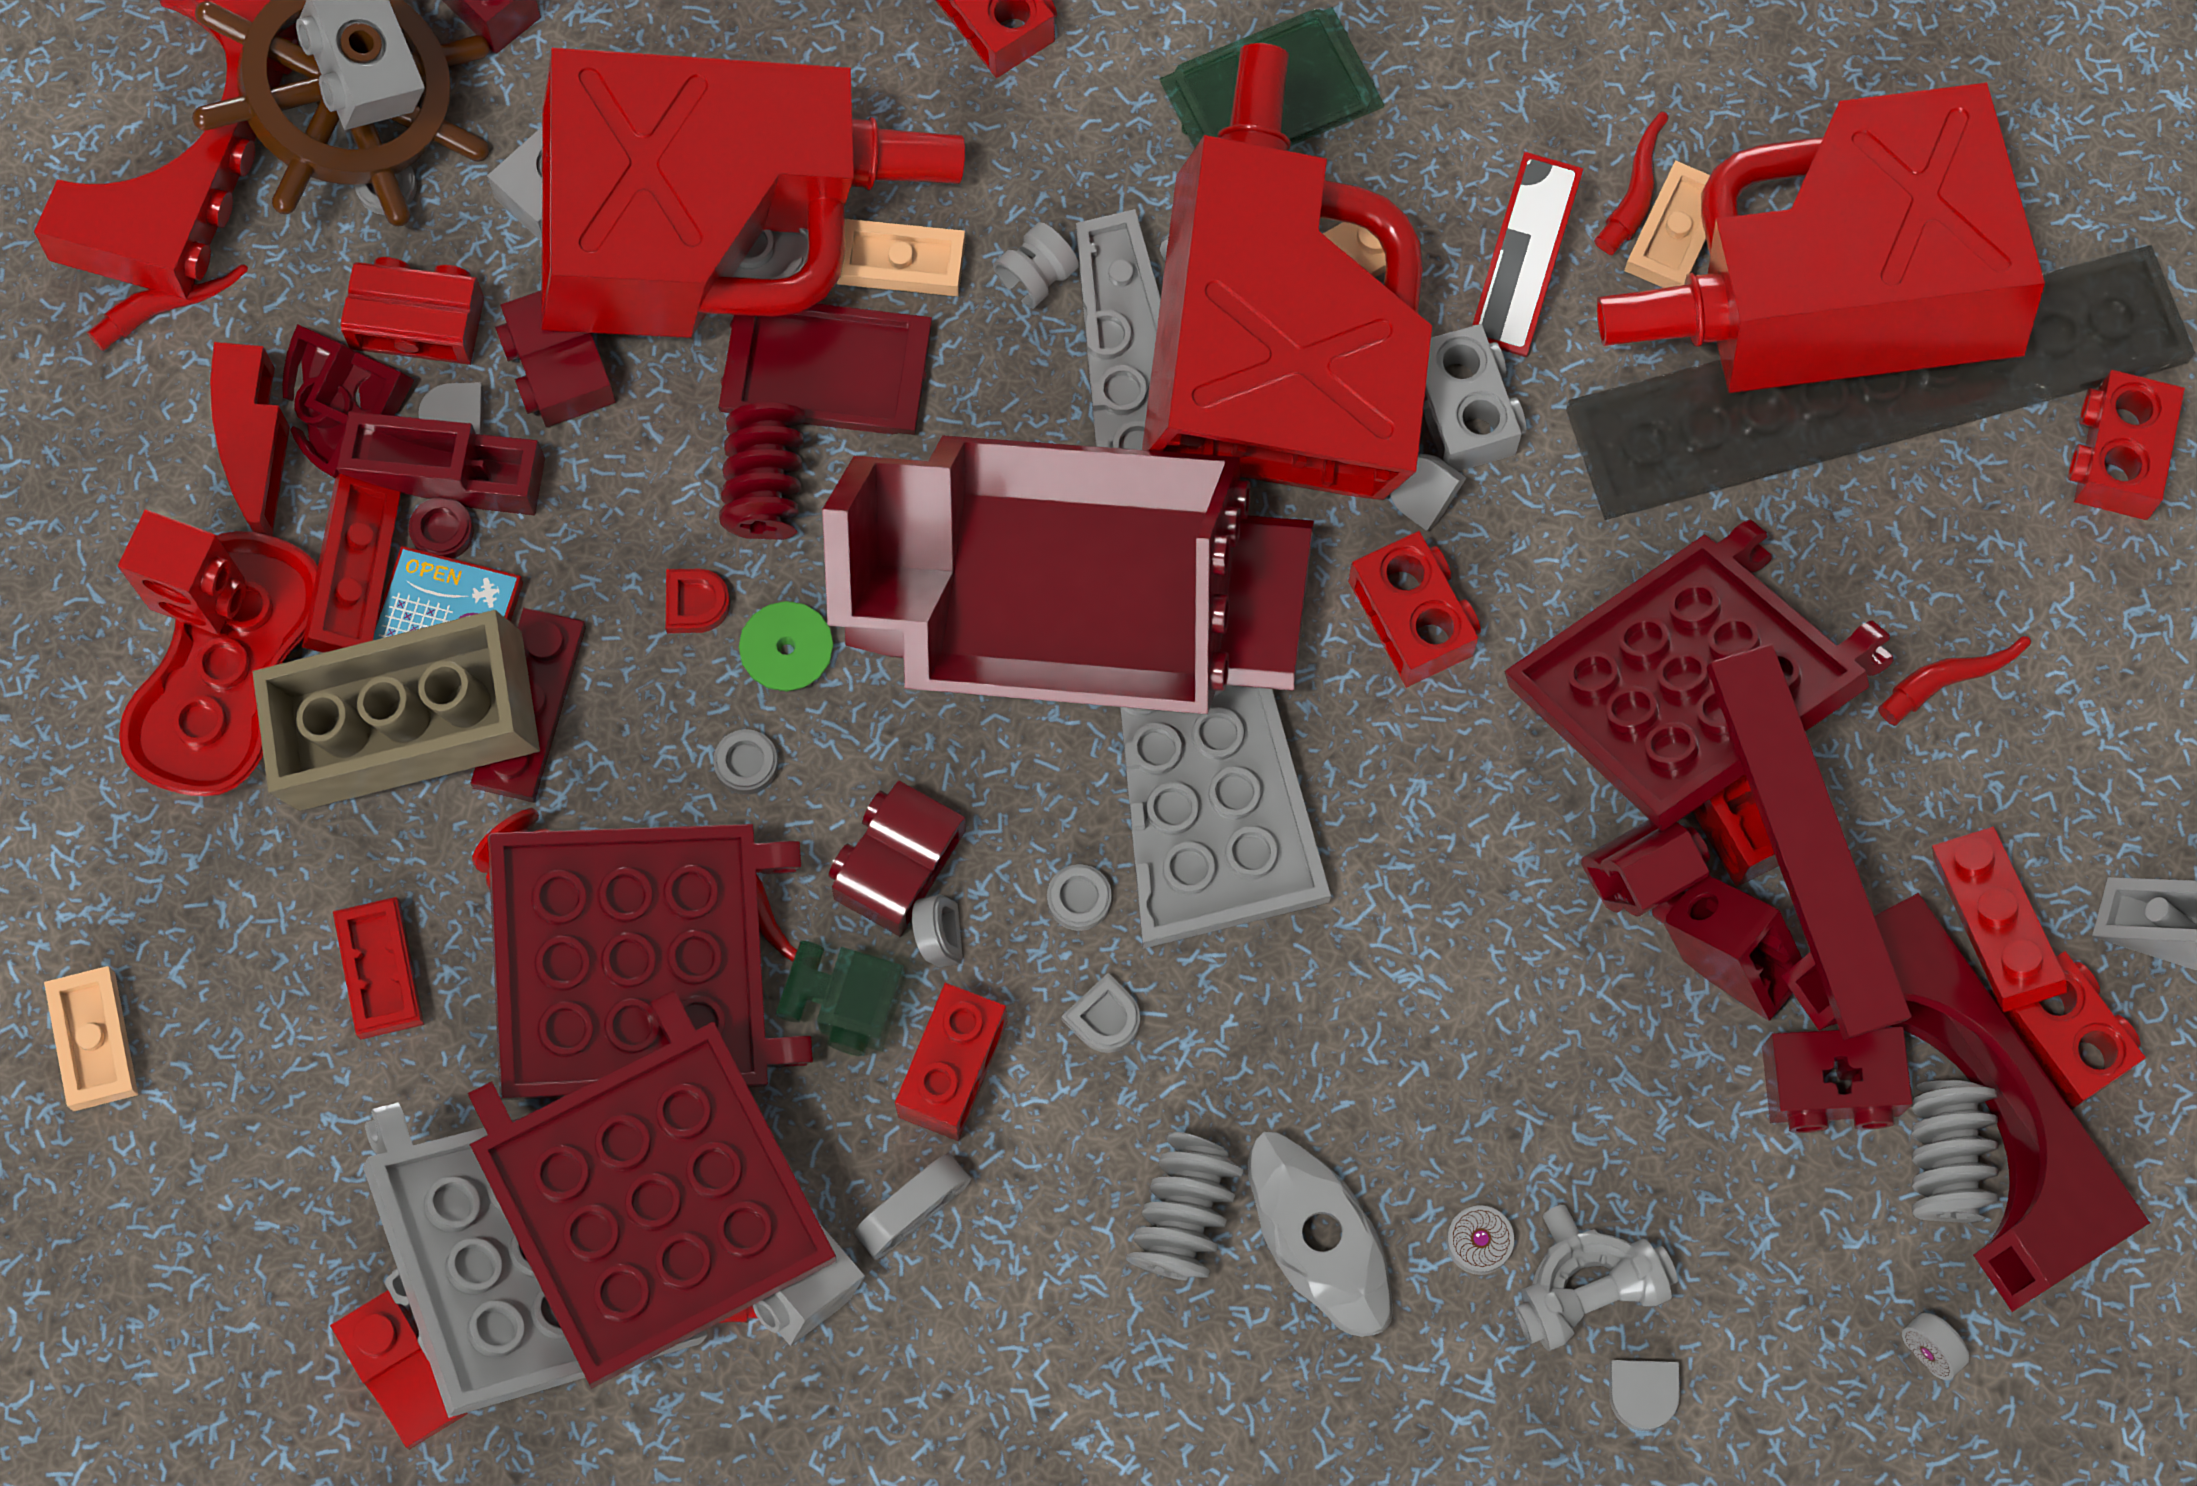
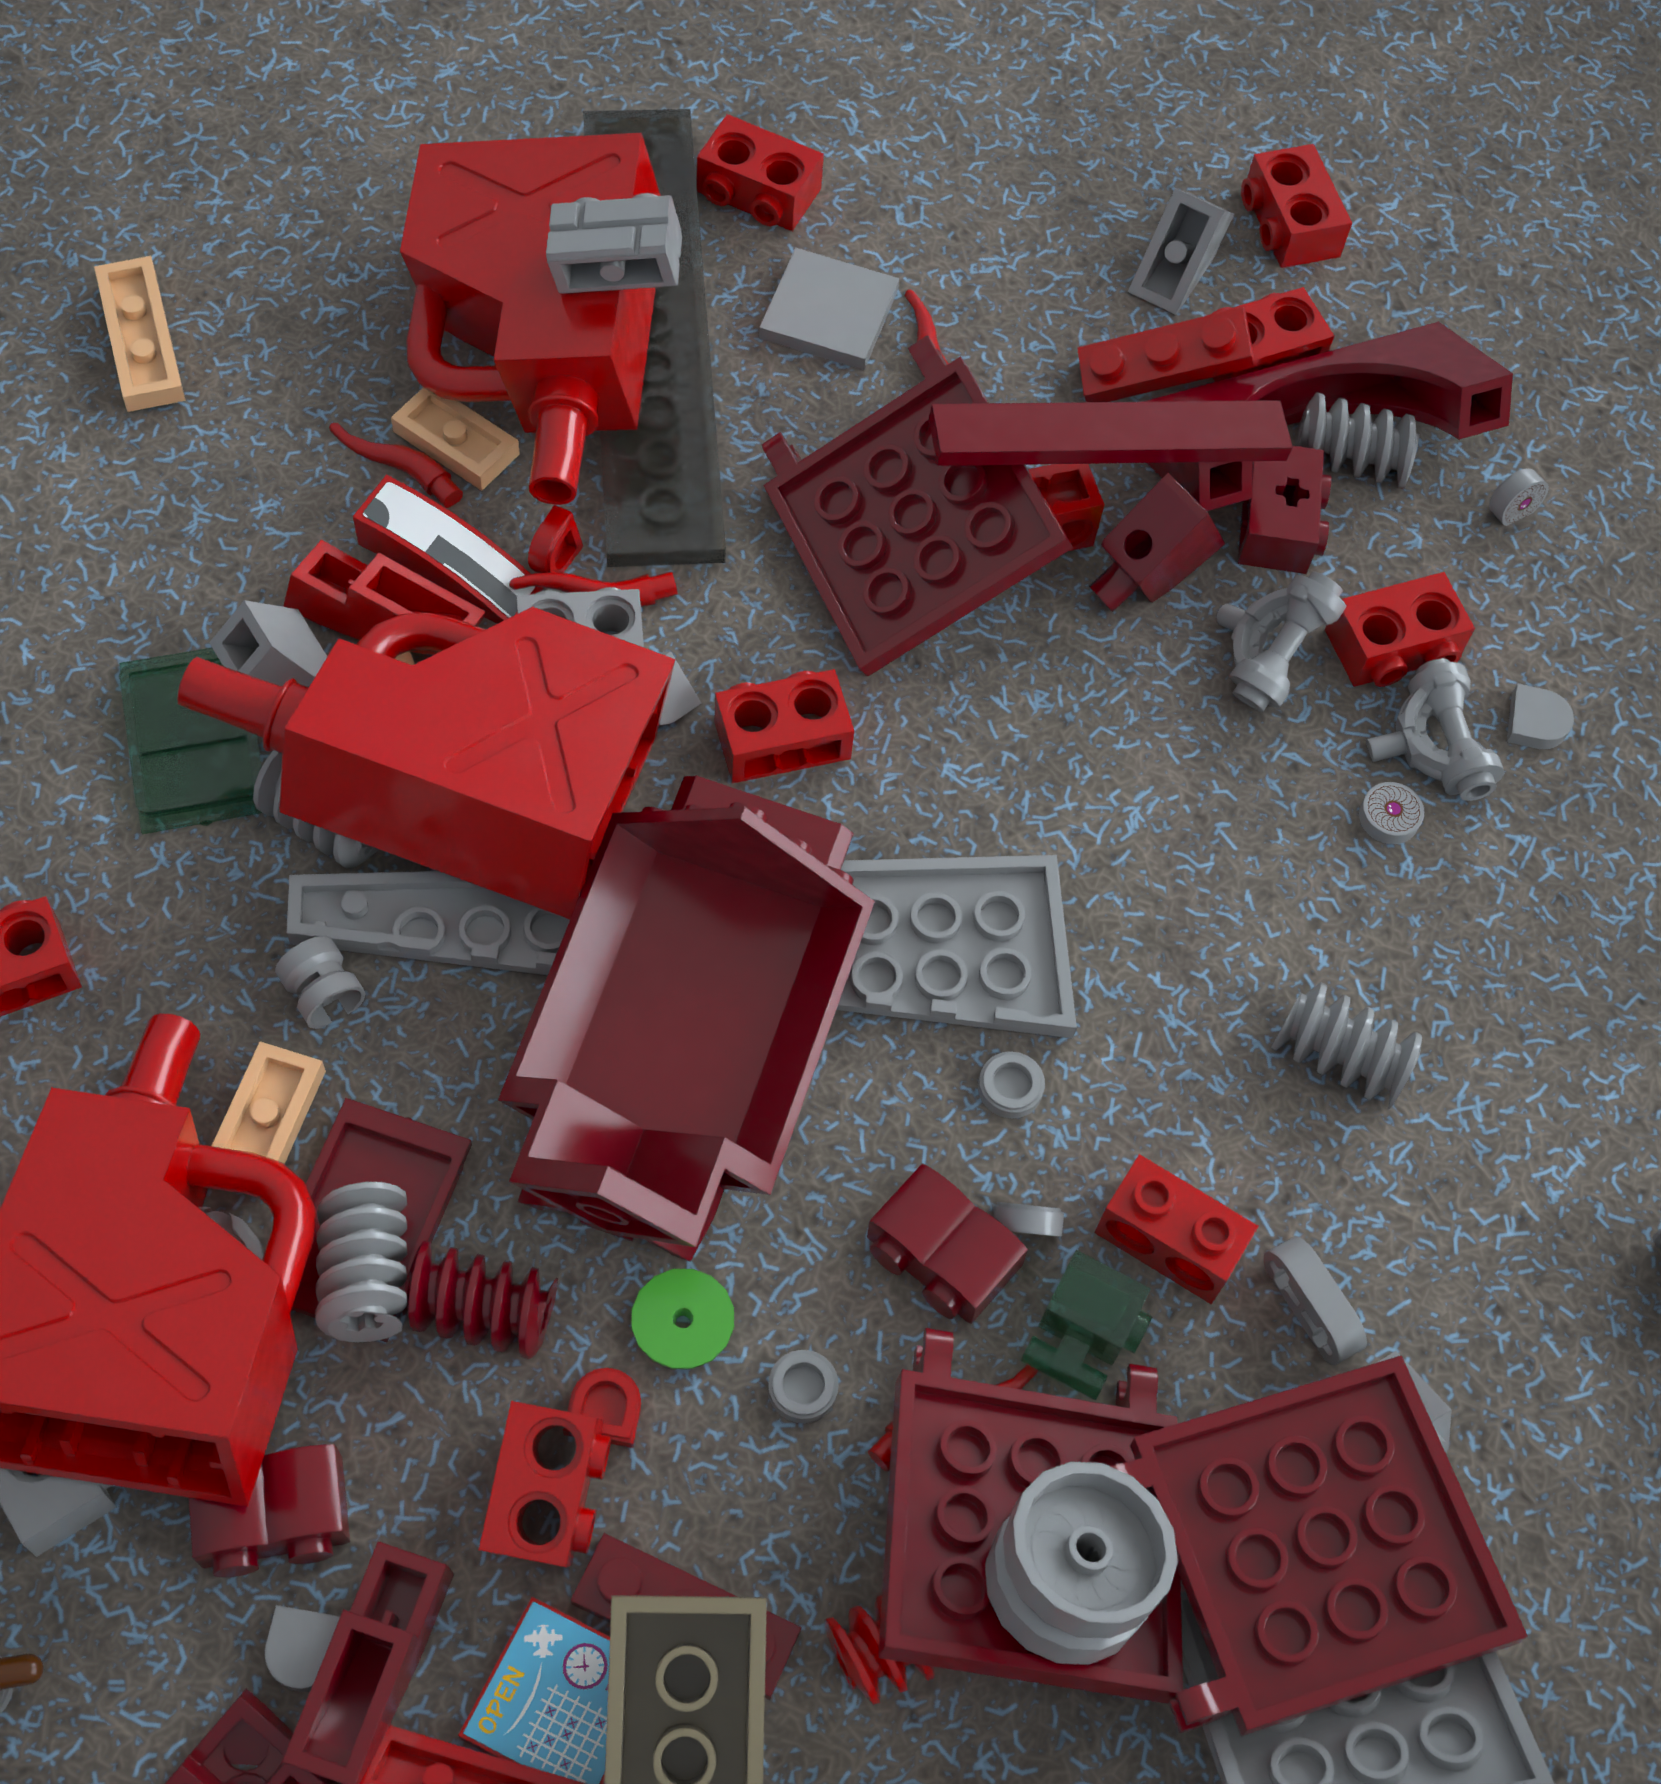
camera: 85 degrees left, 10 degrees down
(412, 311) = (160, 1671): red brick -> none
(441, 528) = (444, 1686): dark red tile -> none
(611, 543) = (525, 1479): none -> red brick
(613, 952) = (1080, 1563): none -> light grey wheel
(771, 360) = (361, 1262): none -> light grey piece
(1104, 1017) = (1136, 1085): light grey tile -> none
(1345, 1282) = (1337, 953): light grey piece -> none
(1359, 129) = (269, 644): none -> light grey slope
(1453, 205) = (356, 596): none -> red slope
(1538, 437) = (650, 588): none -> red animal
(1568, 351) = (555, 542): none -> red tile
(1622, 1074) = (1305, 607): none -> light grey piece
(1646, 866) = (1084, 589): dark red brick -> none
(1722, 1214) = (1408, 624): none -> red brick
(1866, 285) = (614, 244): none -> light grey brick
(1971, 559) = (829, 308): none -> light grey tile

